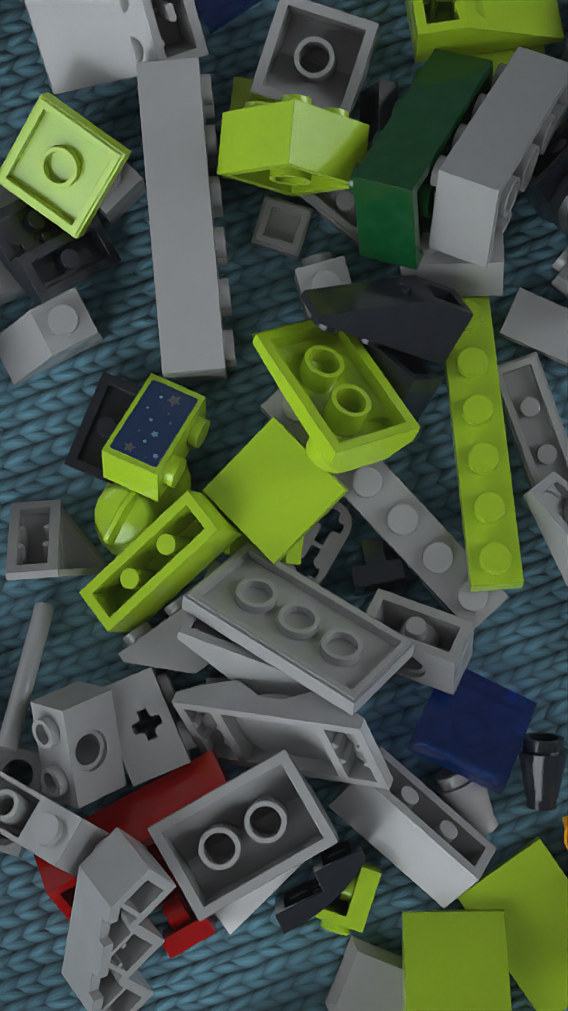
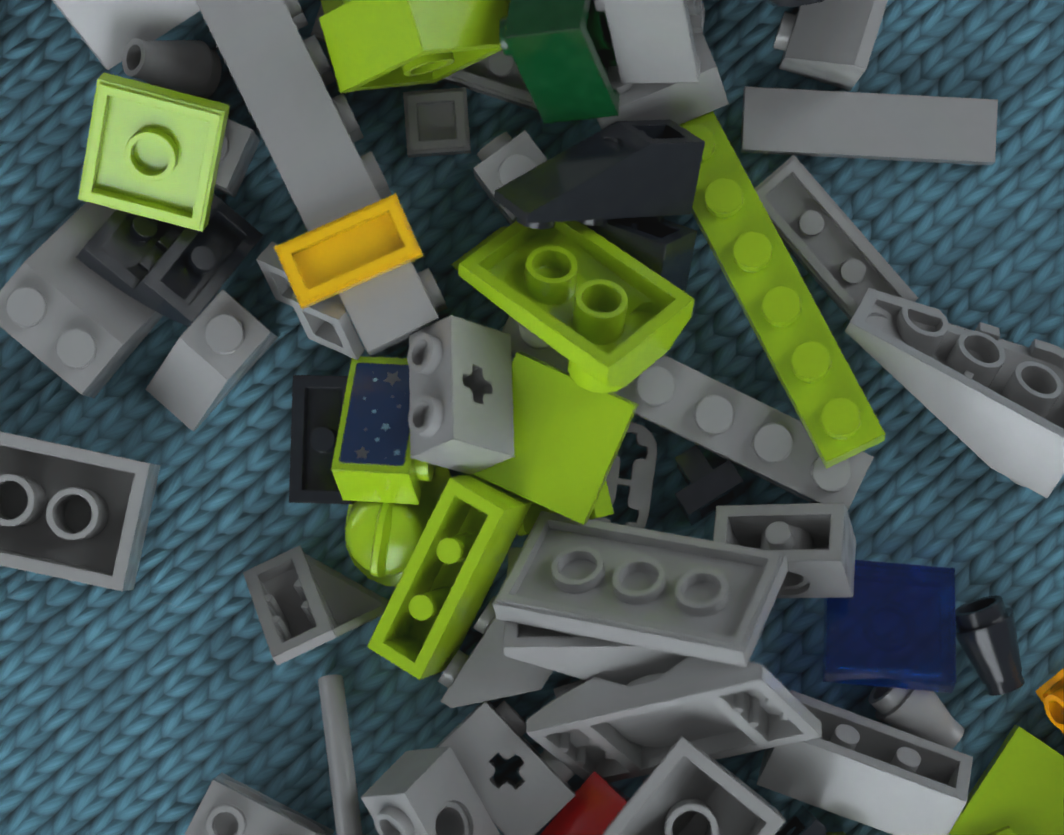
camera: 20 degrees left, 0 degrees up
(104, 108) = (174, 65): none -> light grey cone
(138, 319) = (322, 322): none -> light grey slope
(177, 293) = (348, 251): none -> yellow tile
(219, 432) = (460, 395): none -> light grey brick

